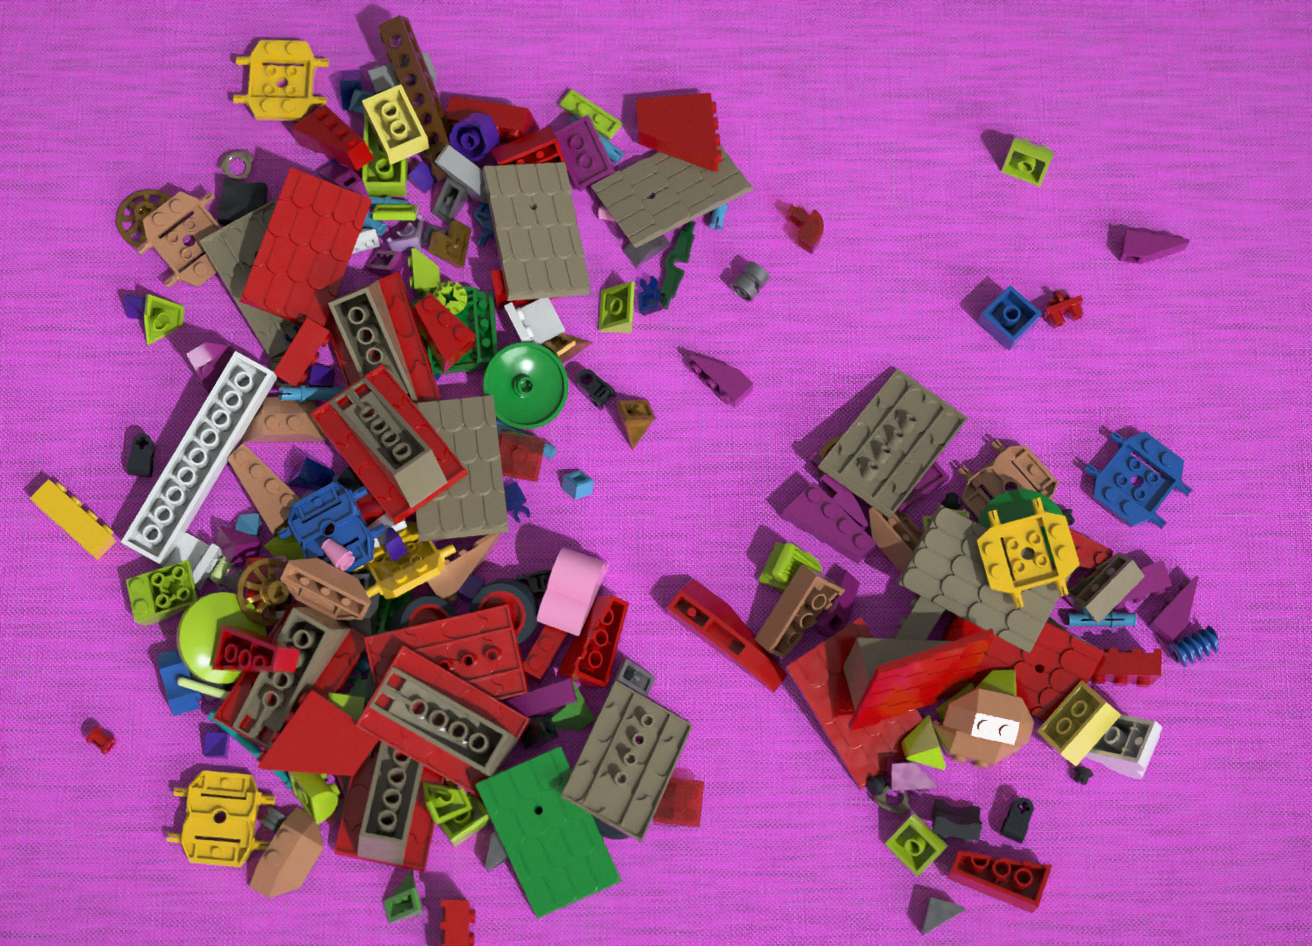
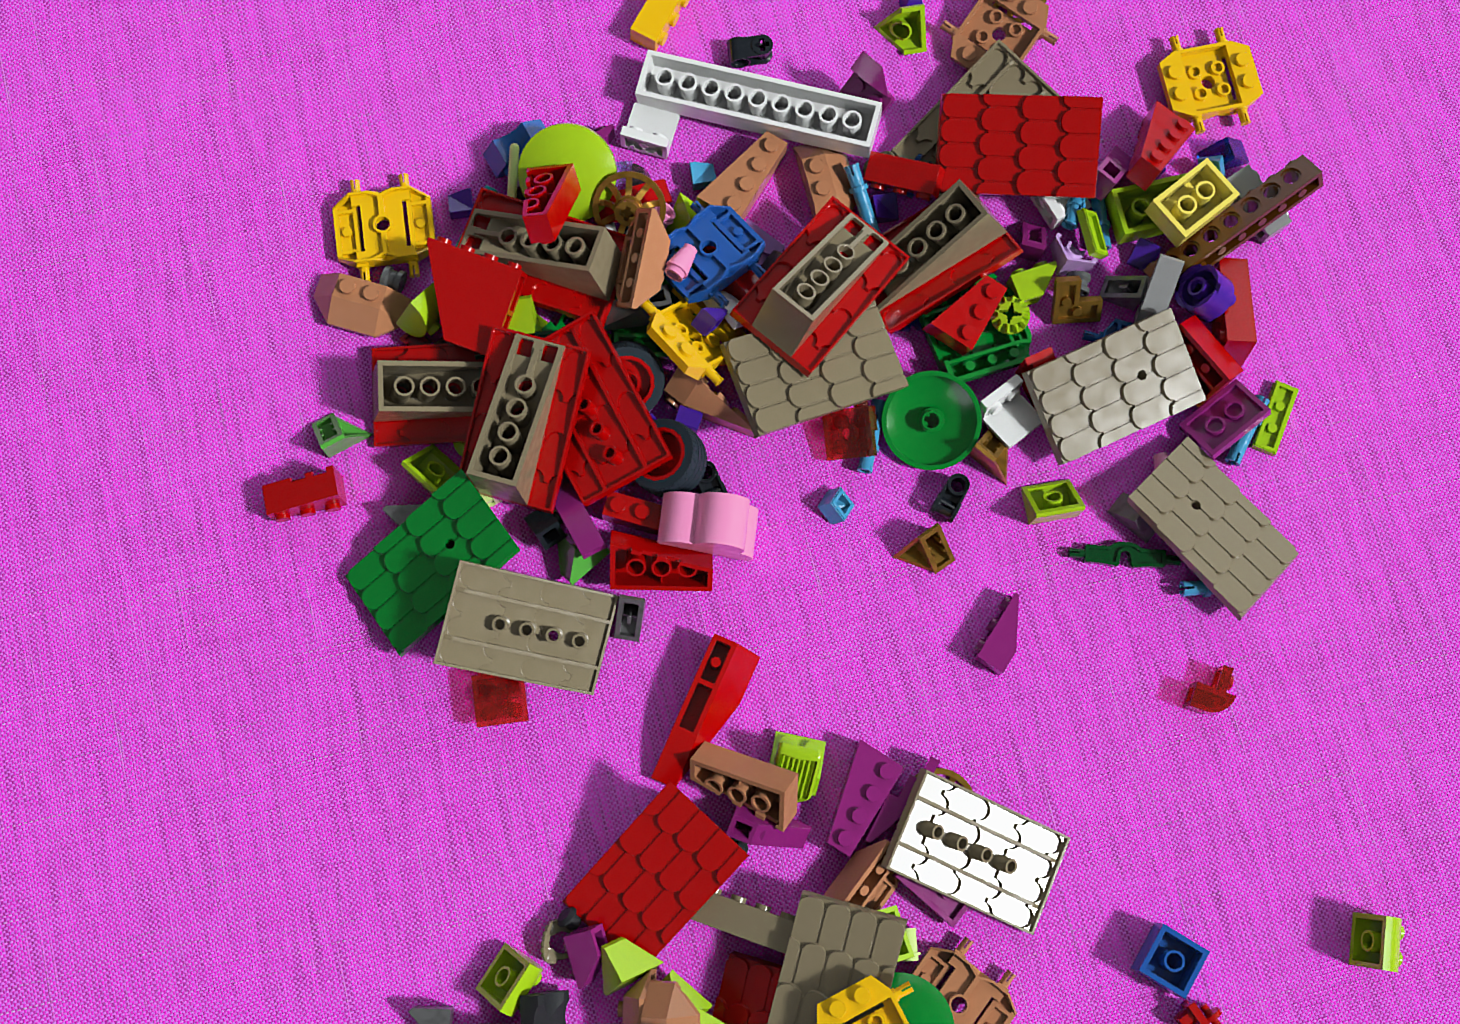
camera: 70 degrees right, 5 degrees up
(101, 739) = (441, 90): red bush -> none
(161, 593) = (604, 103): lime slope -> none
(220, 570) = (648, 160): yellowish green pin -> none
(225, 162) = (1099, 49): dark tan piece -> none
(238, 545) = (677, 169): magenta slope -> none
(240, 199) = (1060, 71): black brick -> none
(310, 475) = (771, 223): clear blue slope -> none
(445, 802) = (443, 444): lime slope -> none
(514, 499) = (801, 440): clear blue plate -> none
(650, 298) = (1073, 534): clear blue plate -> none
(681, 128) = (1289, 520): red slope -> none
(752, 278) = (1127, 642): flat silver wheel -> none
(904, 675) = (690, 915): red piece -> none
(951, 501) = (925, 936): black piece -> none

